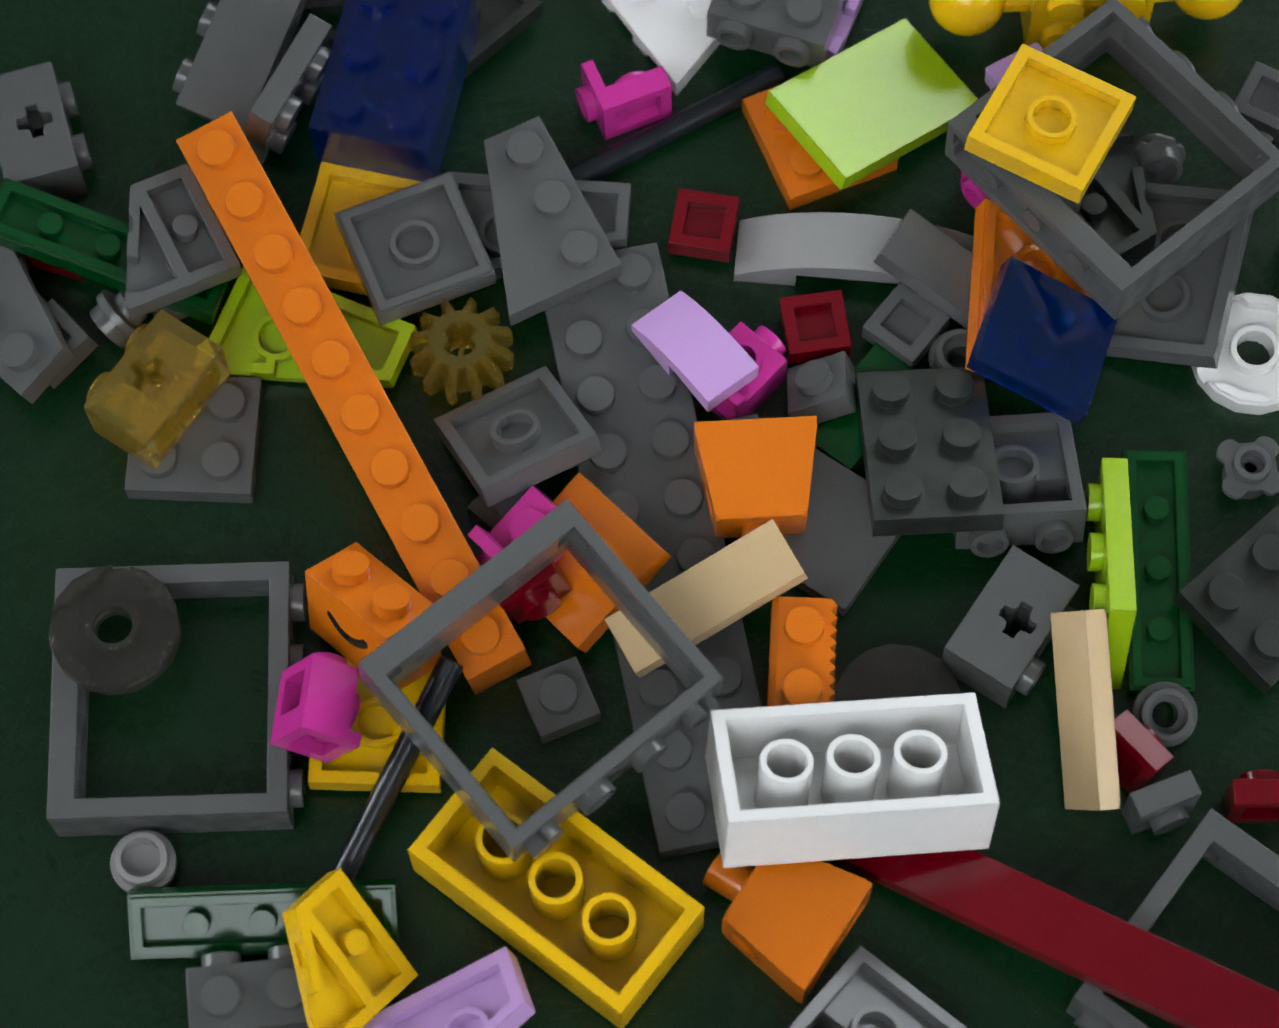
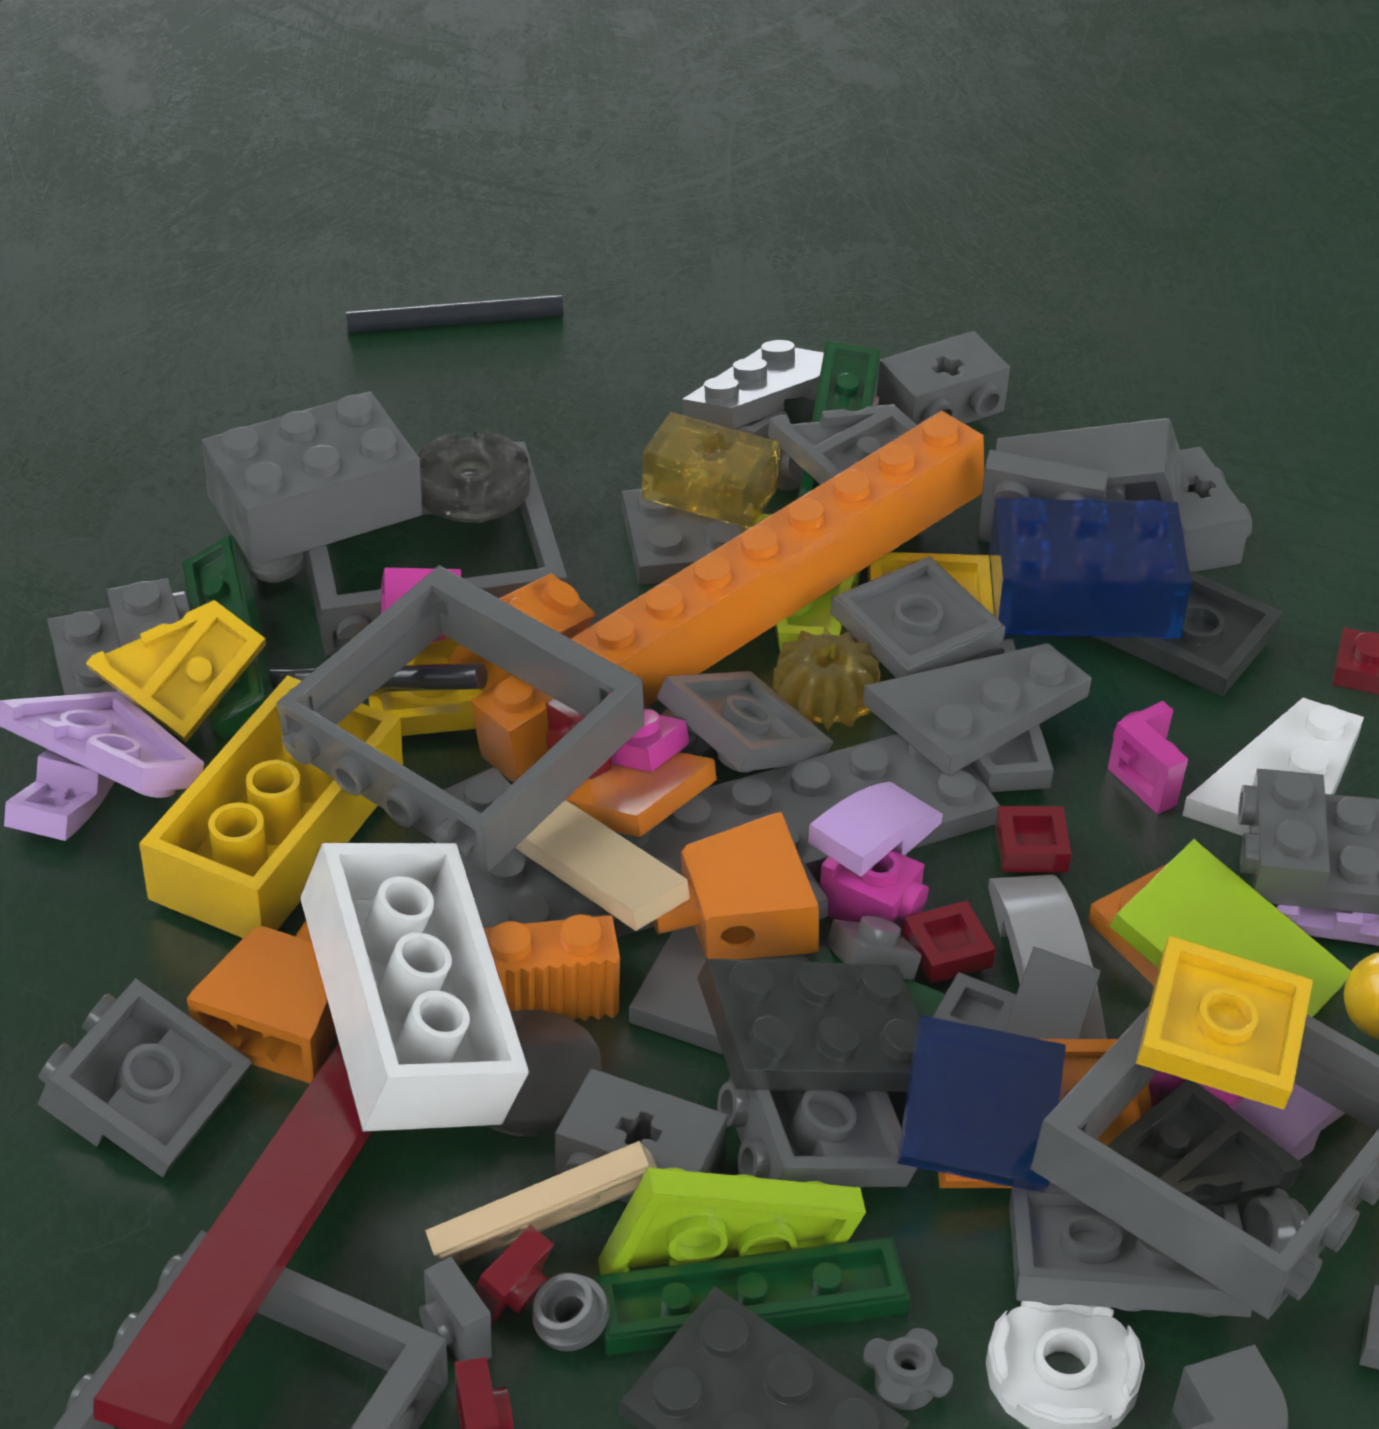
camera: 75 degrees right, 25 degrees down
(106, 789) = (312, 477): none -> dark grey brick
(676, 125) = (1127, 799): black bar -> none

